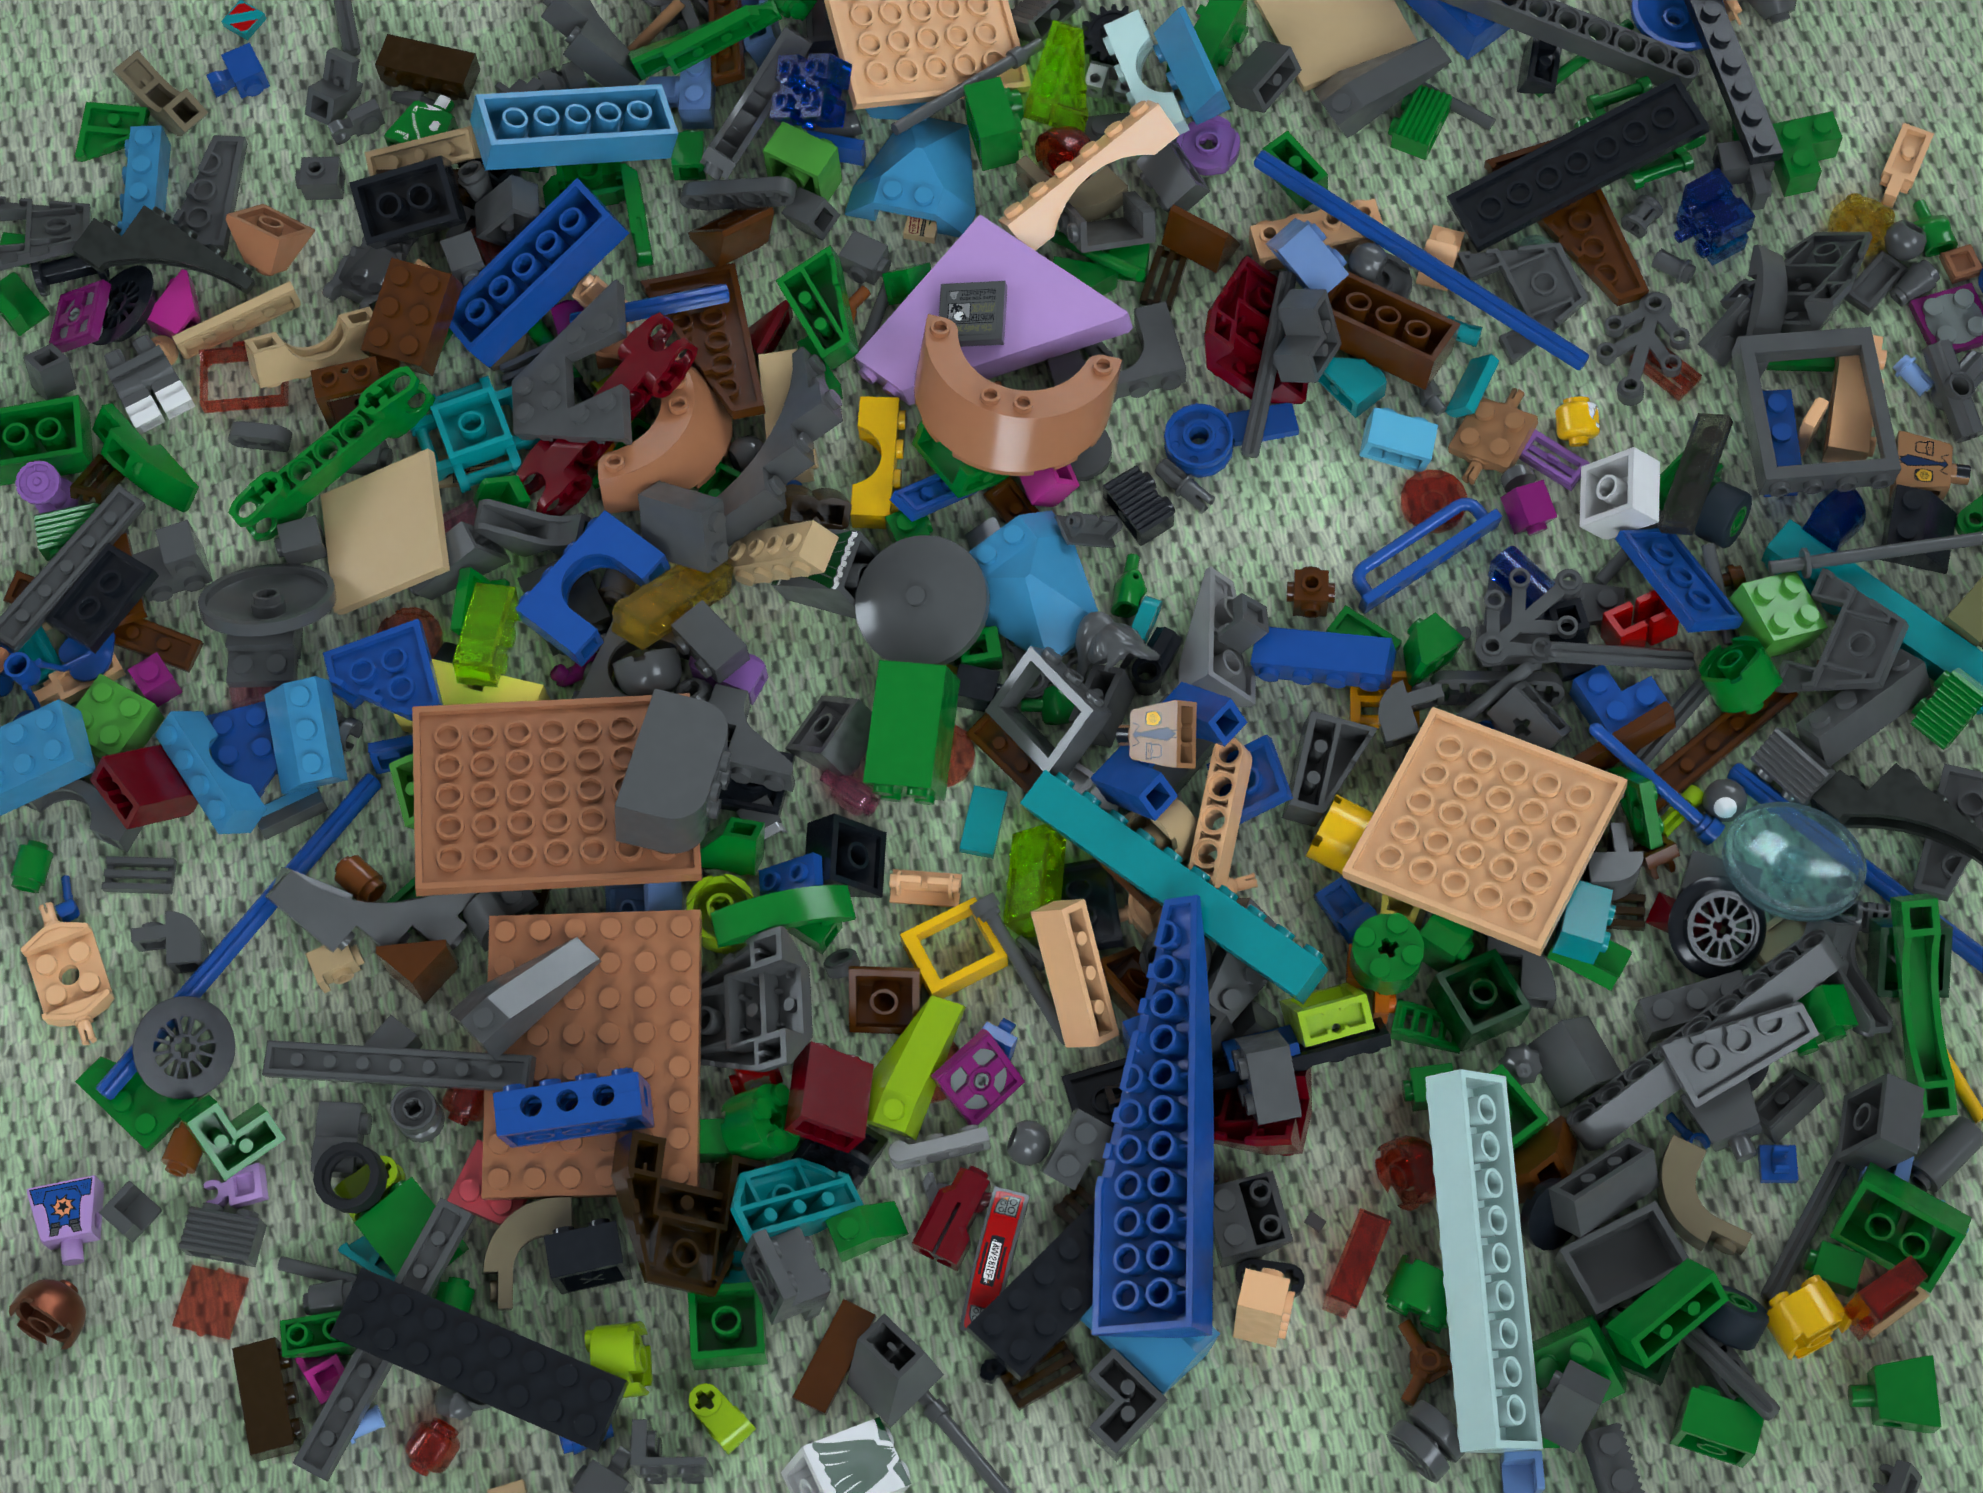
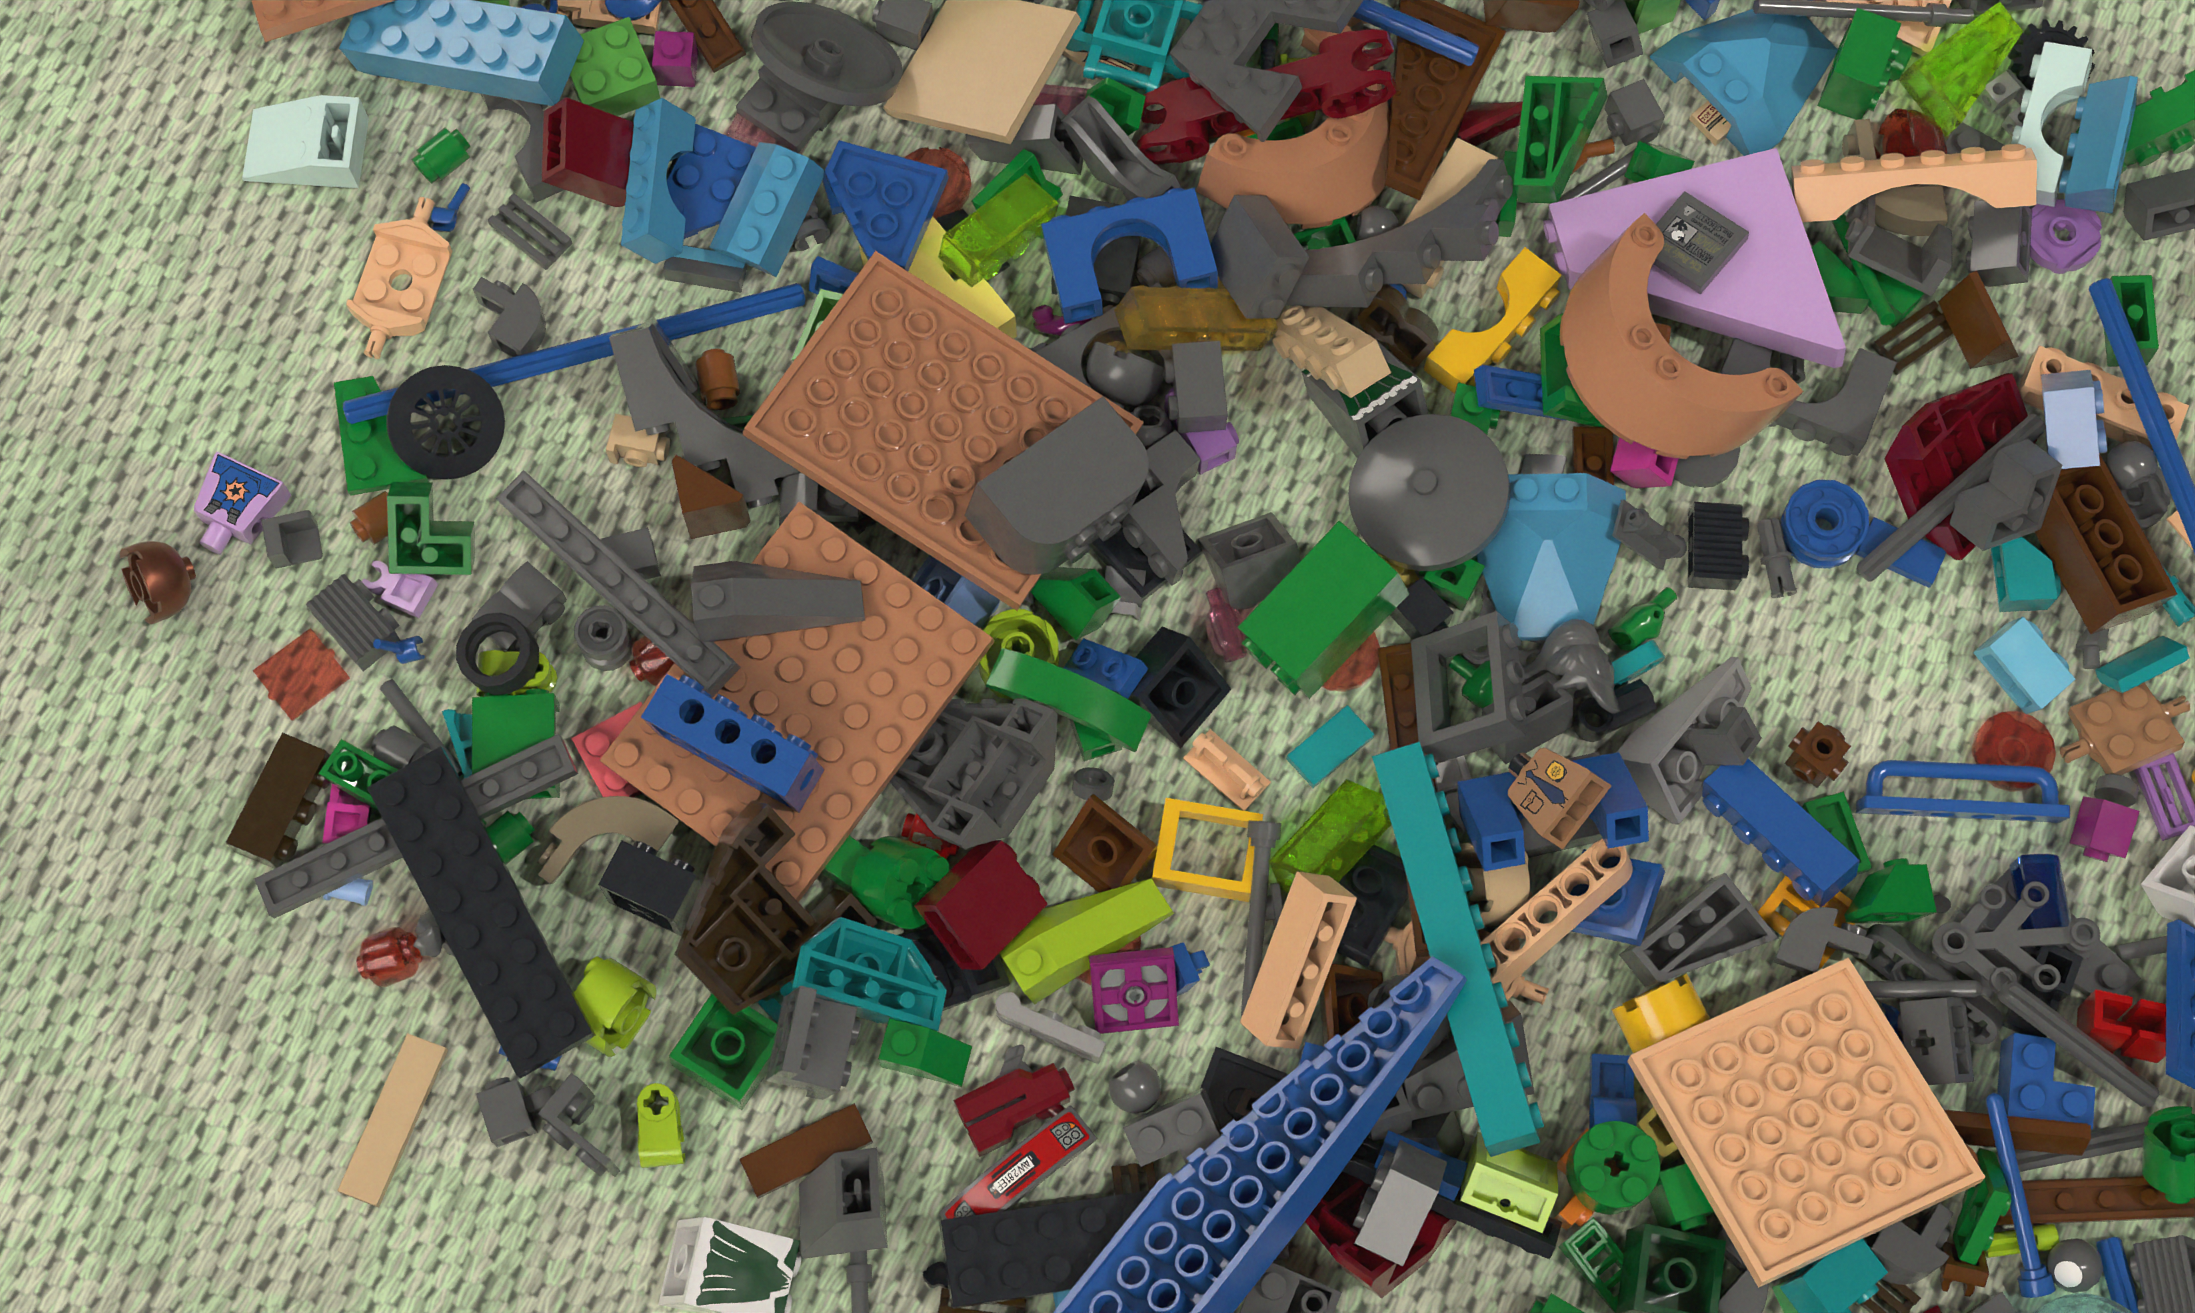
camera: 30 degrees right, 5 degrees up
(276, 1227) = (405, 649): none -> blue hand

